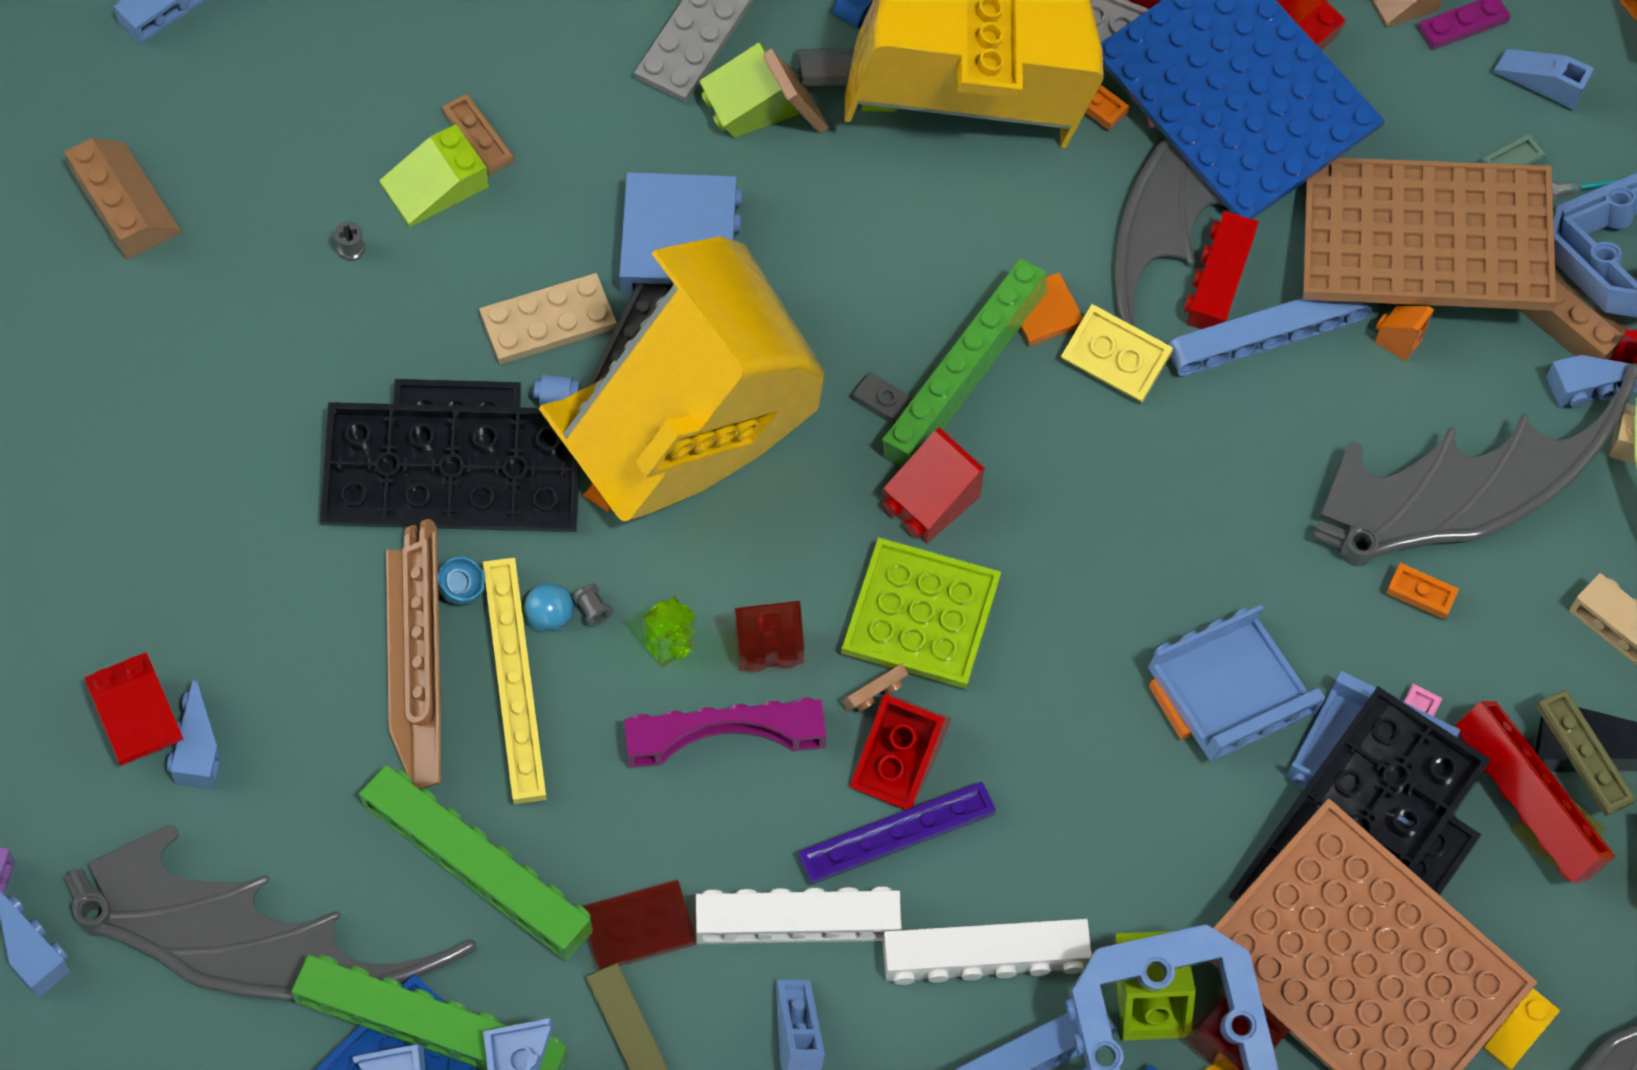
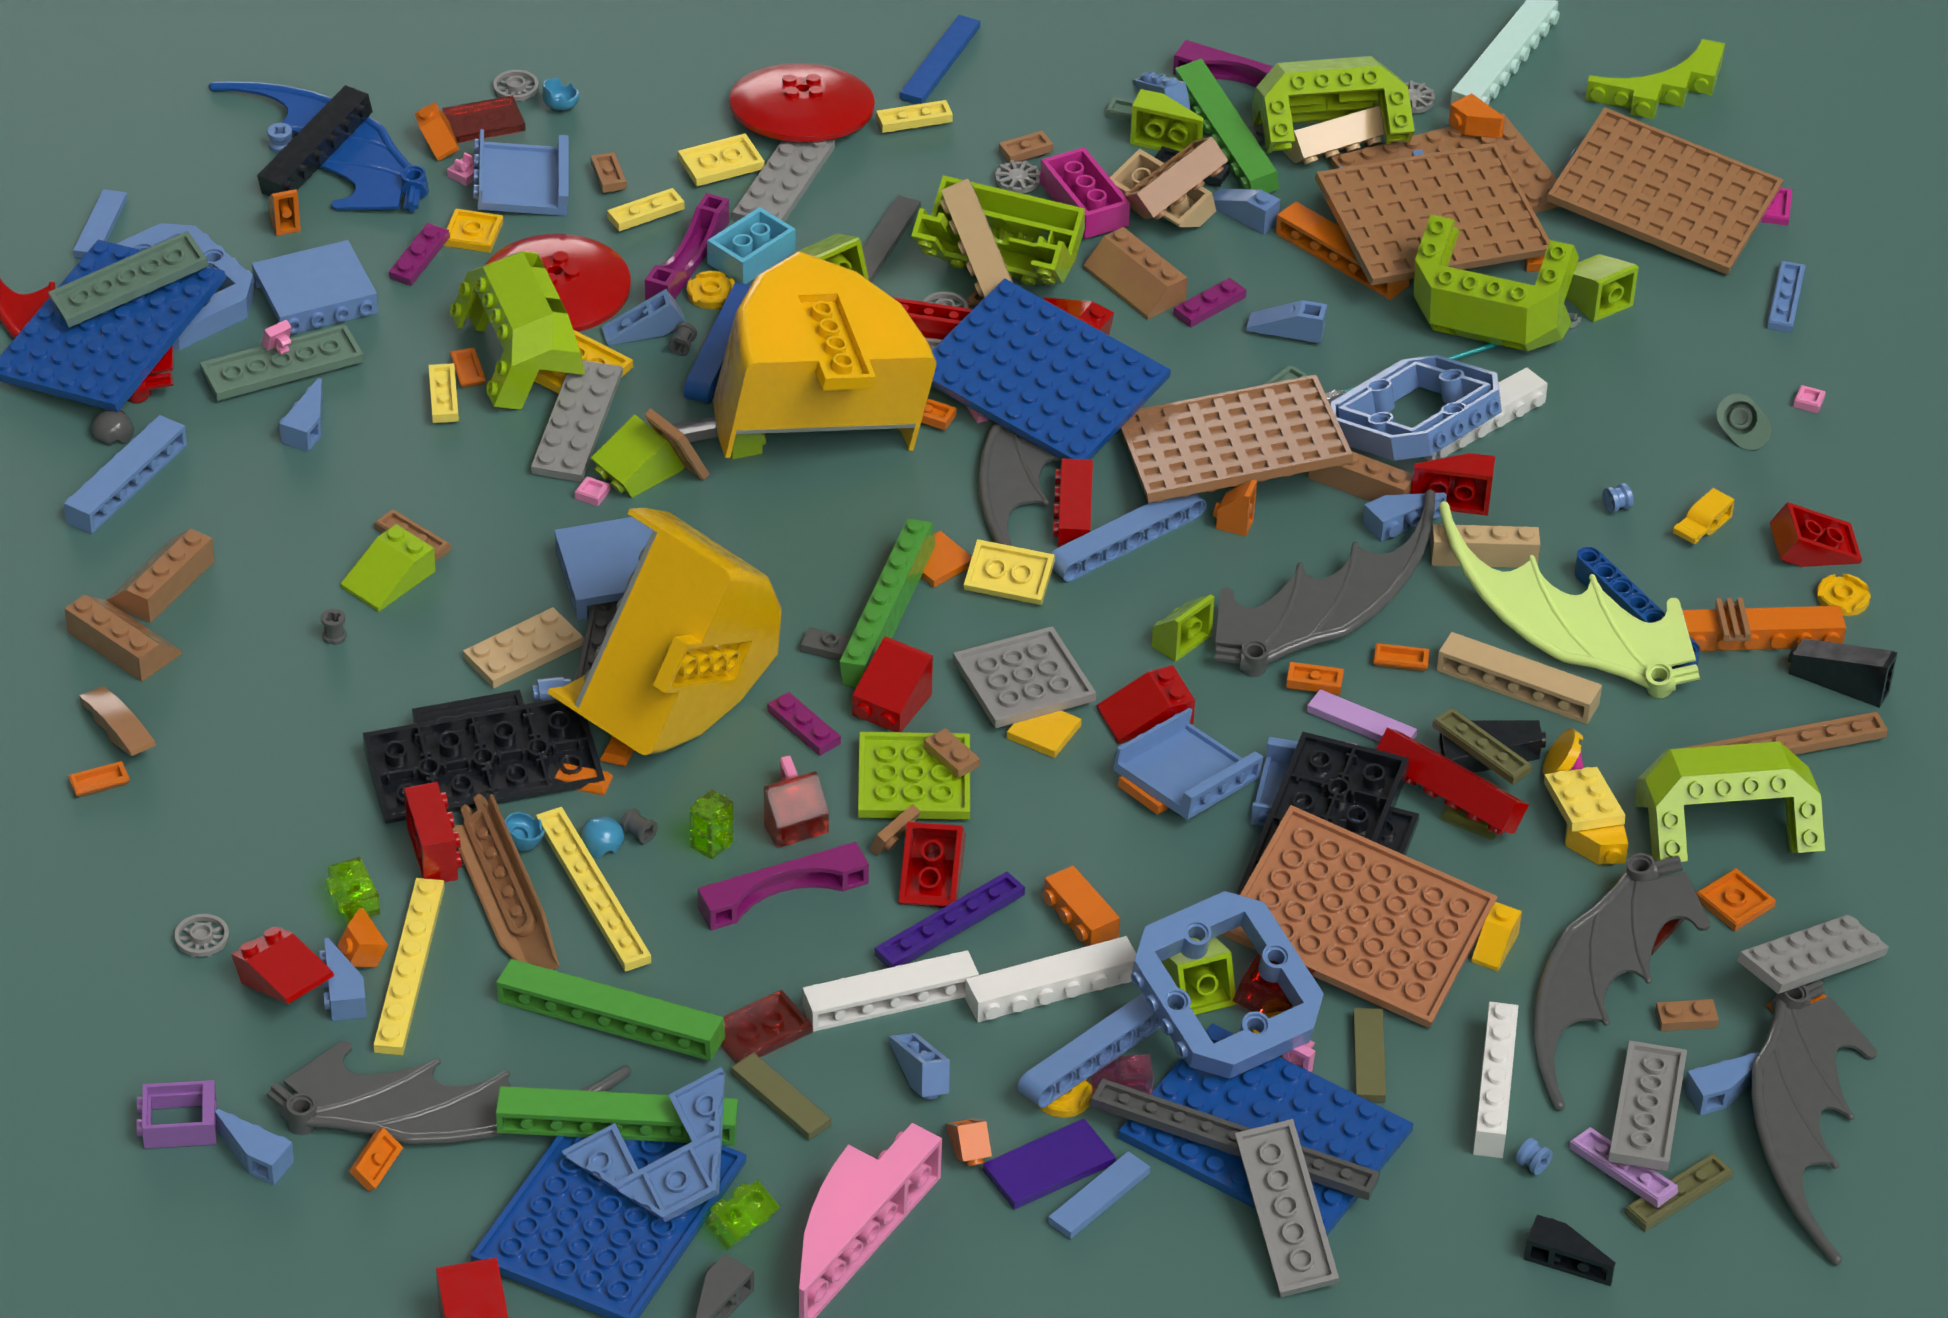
camera: 15 degrees left, 20 degrees down
(34, 384) = (99, 779): none -> orange tile
(73, 629) = (201, 935): none -> light grey wheel
(76, 313) = (118, 720): none -> medium nougat slope
(153, 1001) = (376, 1159): none -> orange plate
(193, 125) = (165, 575): none -> medium nougat slope
(234, 691) = (362, 941): none -> orange slope
(249, 617) = (352, 888): none -> clear neon green brick
(280, 733) = (409, 967): none -> light yellow plate
(357, 564) = (432, 832): none -> red brick
(558, 514) = (595, 788): none -> orange tile
(692, 120) = (592, 491): none -> bright pink tile
(780, 578) = (787, 768): none -> bright pink tile
(823, 504) = (804, 723): none -> magenta plate
(971, 597) = (952, 753): none -> medium nougat plate
(1050, 855) = (1081, 907): none -> orange brick
(1089, 505) = (1024, 677): none -> light grey plate
(1090, 580) = (1045, 733): none -> yellow tile
(1215, 582) = (1146, 703): none -> red slope
(1291, 483) = (1184, 628): none -> lime slope
(1457, 661) = (1355, 716): none -> lavender tile
(1533, 583) = (1401, 657): none -> orange tile

